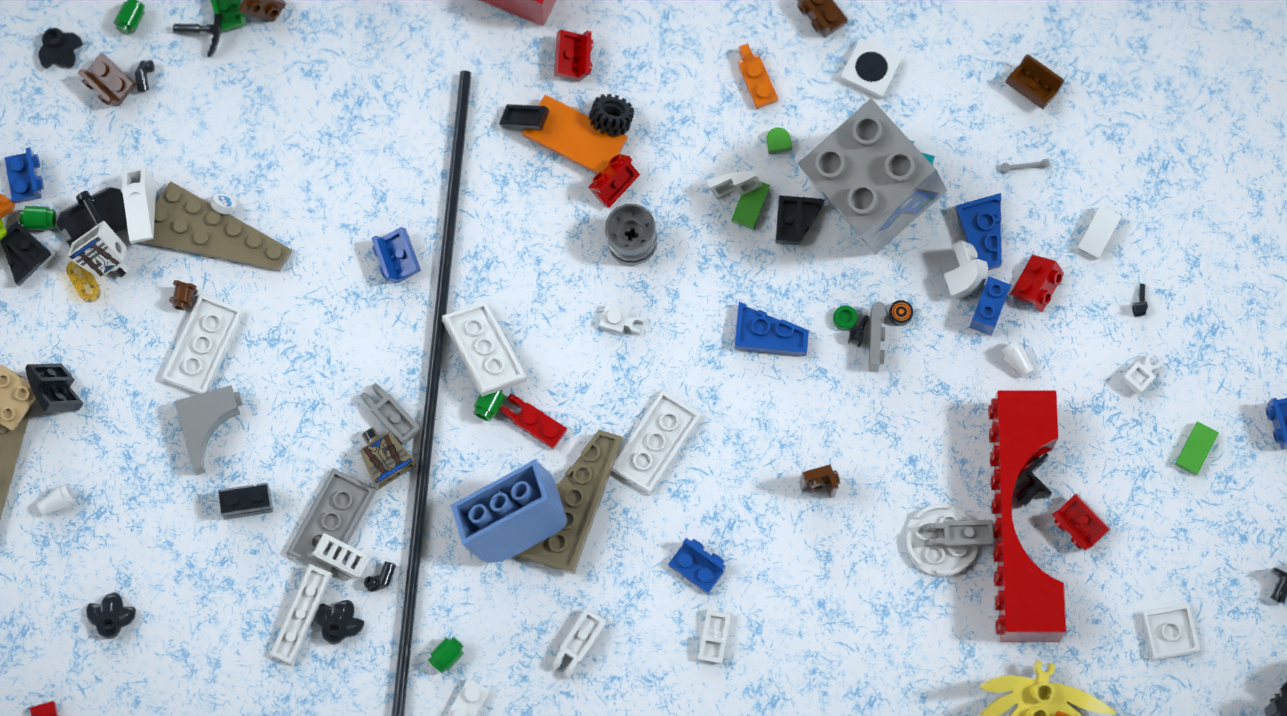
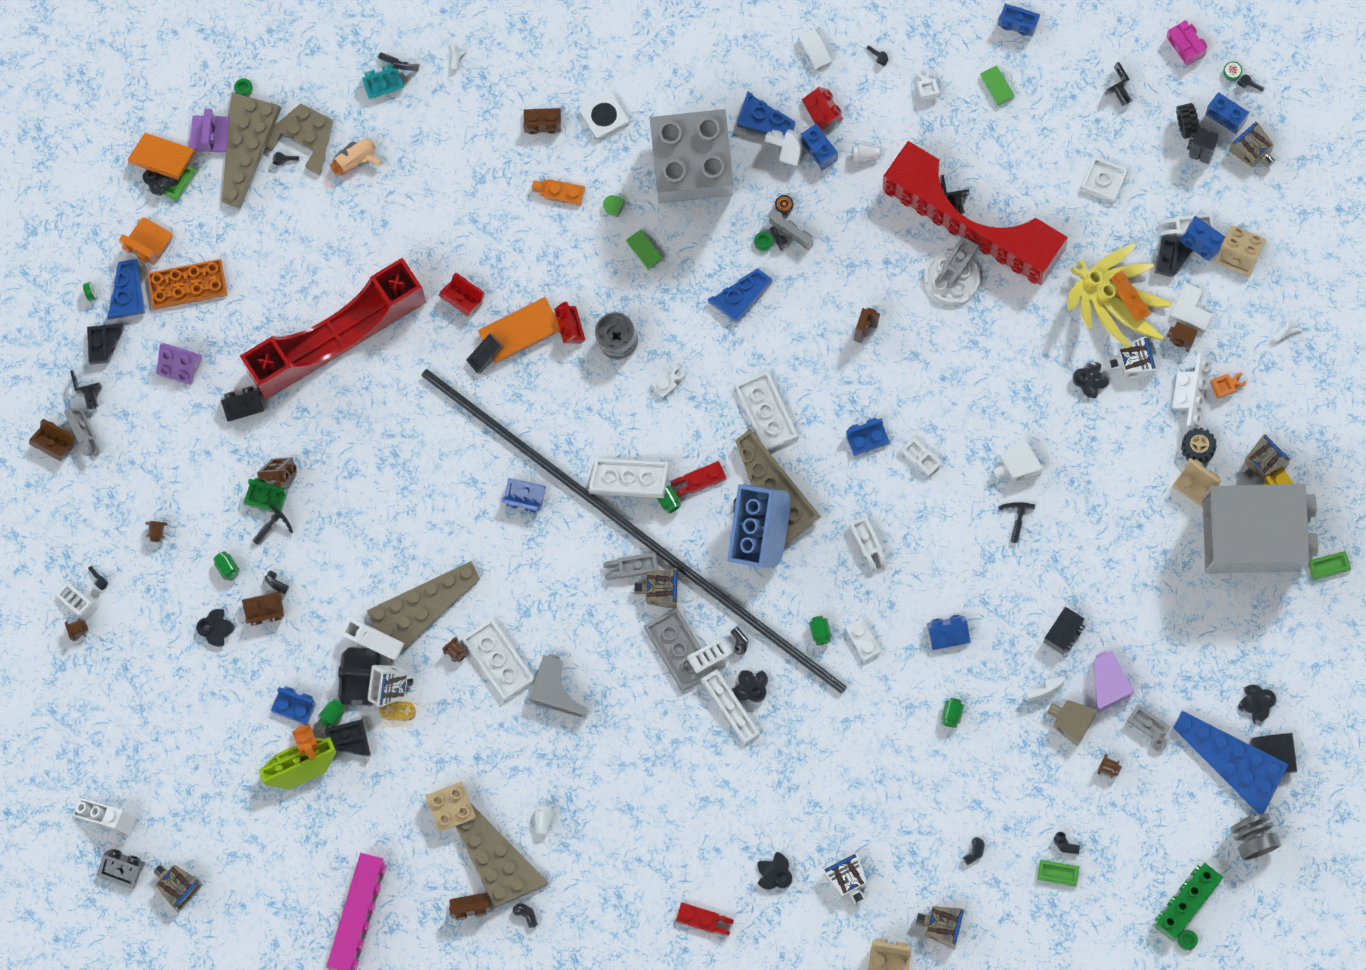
camera: 50 degrees left, 0 degrees up
(52, 387) = (459, 772): black slope -> none
(109, 612) = (644, 829): black plate -> none
(223, 204) = (408, 585): white tile -> none
(245, 501) = (629, 695): black brick -> none
(611, 115) = (516, 298): black tyre -> none
(742, 181) = (628, 244): white slope -> none
(795, 218) = (674, 228): black wing -> none
(1005, 167) = (730, 78): light grey hinge -> none
(1035, 81) = (686, 20): reddish brown bracket -> none
(1080, 523) = (998, 185): red bracket -> none

